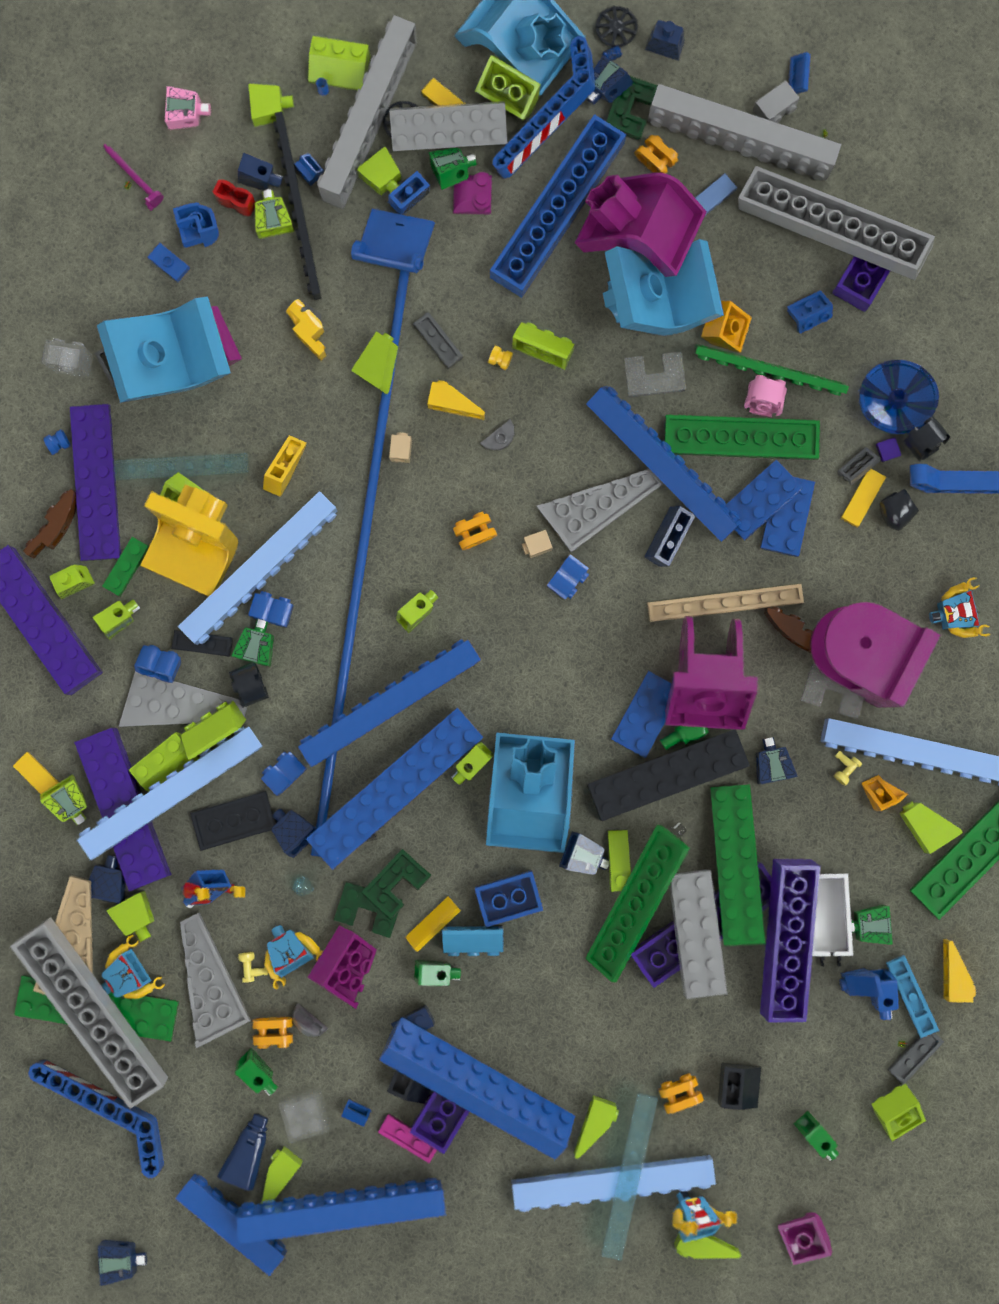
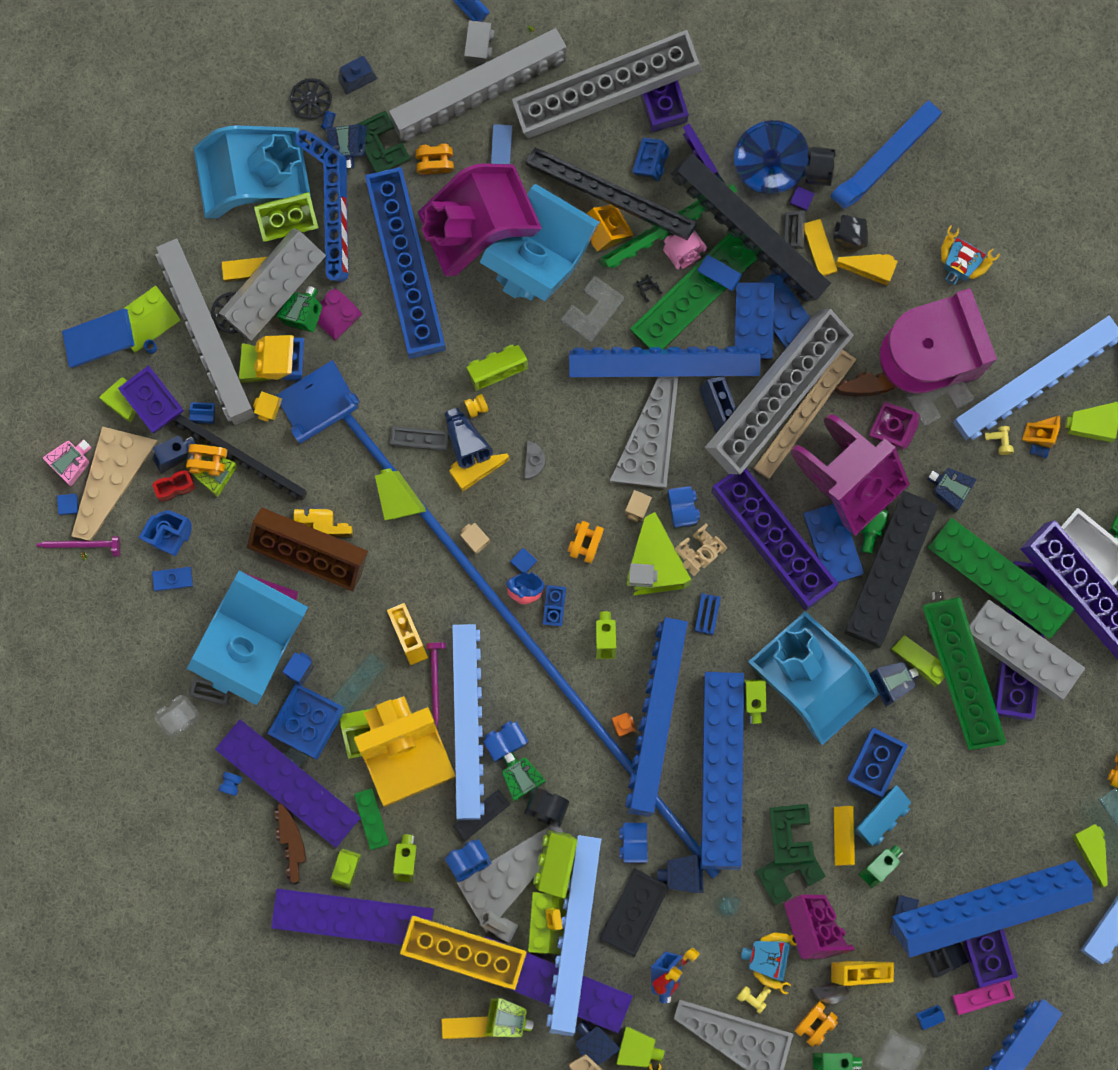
camera: 50 degrees left, 5 degrees down
(78, 722) = (463, 952): none -> yellow brick
(131, 734) = (499, 926): none -> light grey piece
(151, 453) = (306, 721): none -> blue plate
(153, 138) = (67, 504): none -> blue tile
(167, 766) = (553, 918): none -> yellow tile
(183, 410) = (299, 668): none -> blue brick
(205, 147) = (111, 472): none -> tan wing
(272, 211) = (197, 465): none -> light orange brick
(276, 334) = (307, 549): none -> reddish brown brick
(279, 120) = (150, 399): none -> dark purple plate
(291, 42) = (98, 338): none -> blue tile
(292, 494) = (434, 676): none -> magenta piece
(341, 1030) = (861, 972): none -> yellow slope
(357, 209) = (267, 406): none -> yellow brick
(363, 684) = (623, 724): none -> orange brick
(393, 174) = (274, 356): none -> yellow slope
(397, 518) = (525, 587): none -> blue hair
(406, 552) = (554, 605): none -> blue slope
(418, 499) = (523, 561): none -> blue tile
(466, 373) = (466, 440): none -> dark blue piece
(482, 593) = (642, 575): none -> light grey brick
(506, 593) = (657, 550): none -> lime ladder
(519, 661) = (710, 597): none -> blue tile
(534, 623) = (709, 548): none -> tan piece
(608, 666) = (774, 538): none -> dark purple brick
(716, 402) = (639, 284): none -> black piece
(722, 566) = (779, 391): none -> light grey brick
(754, 305) = (611, 193): none -> black plate
(771, 440) = (719, 273): none -> blue slope
(780, 678) = (895, 425): none -> magenta slope
(826, 428) = (750, 228): none -> black brick
(849, 342) = (699, 150): none -> dark purple plate
(868, 810) = (1046, 451): none -> blue piece
(886, 549) = (874, 267): none -> yellow slope

